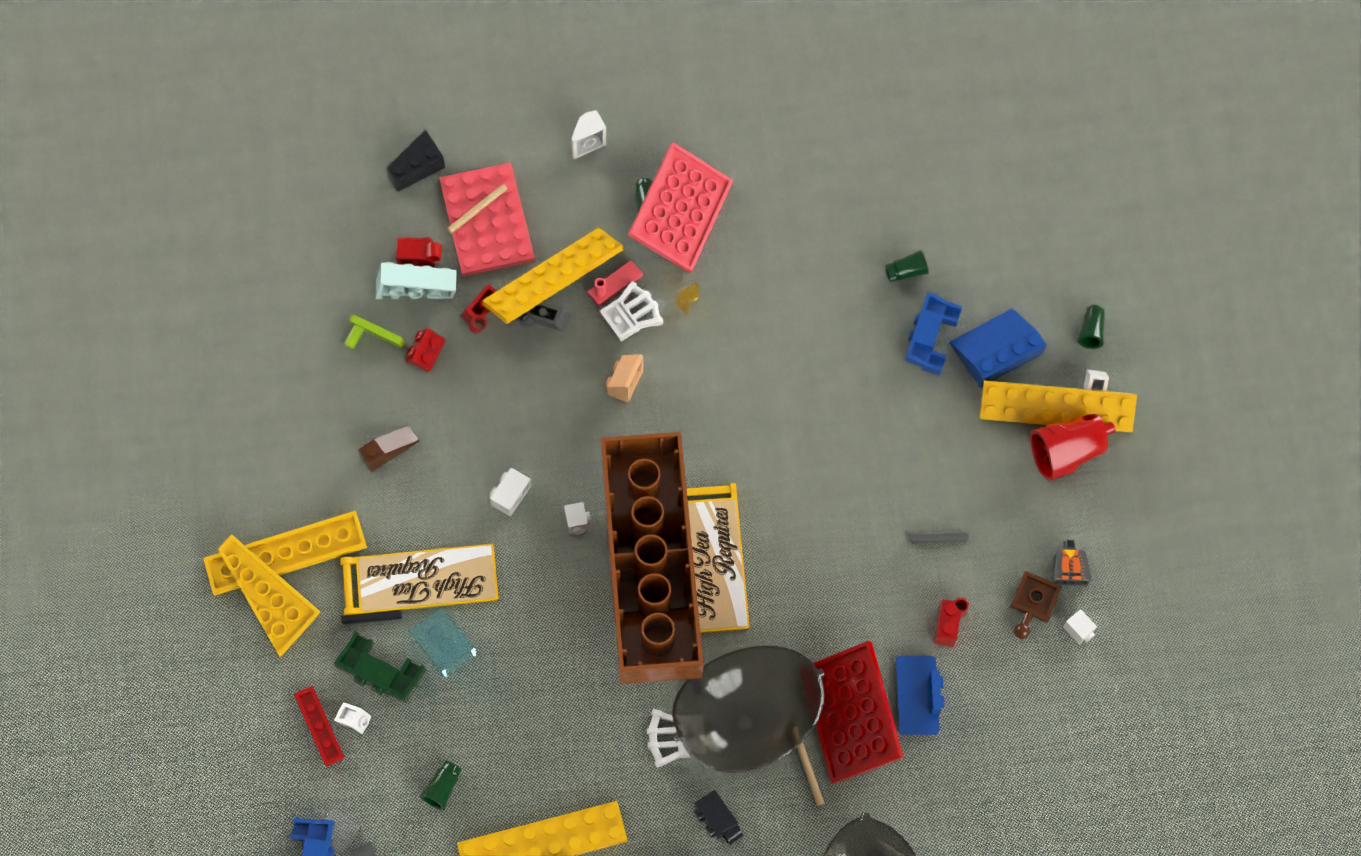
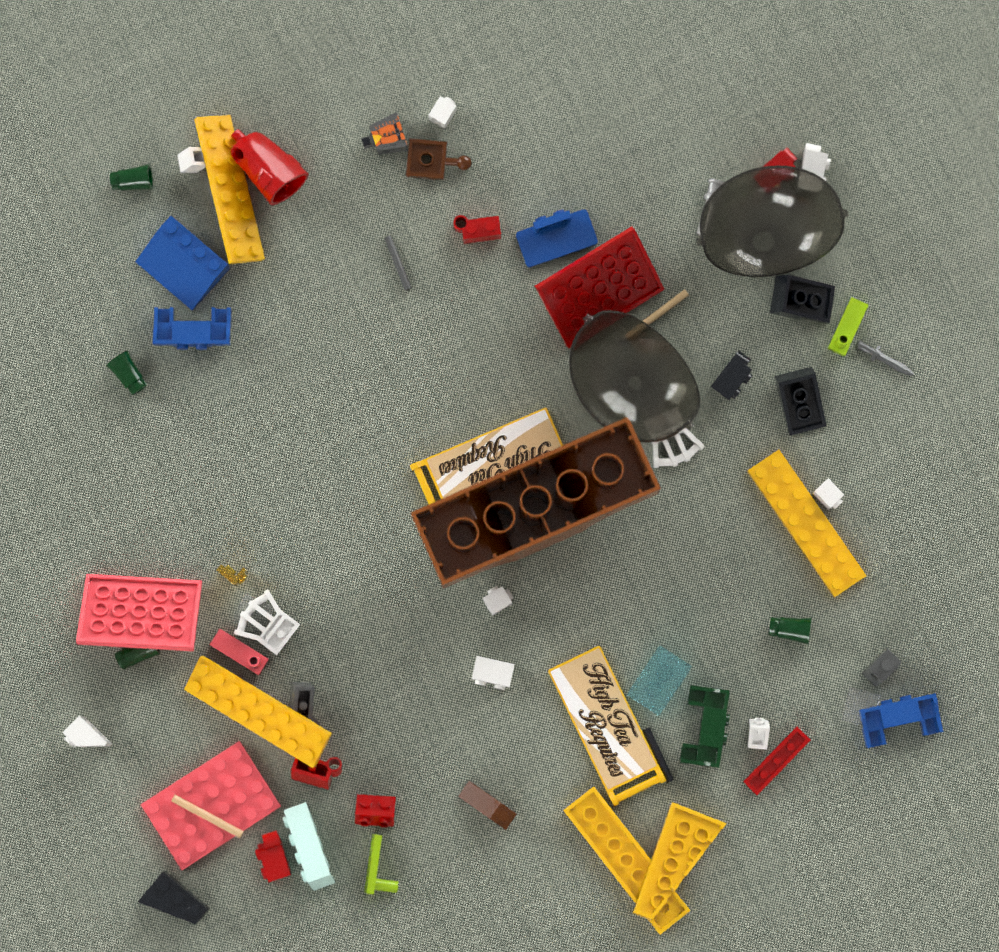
camera: 110 degrees left, 15 degrees up
(625, 377) = (339, 604): light nougat slope -> none

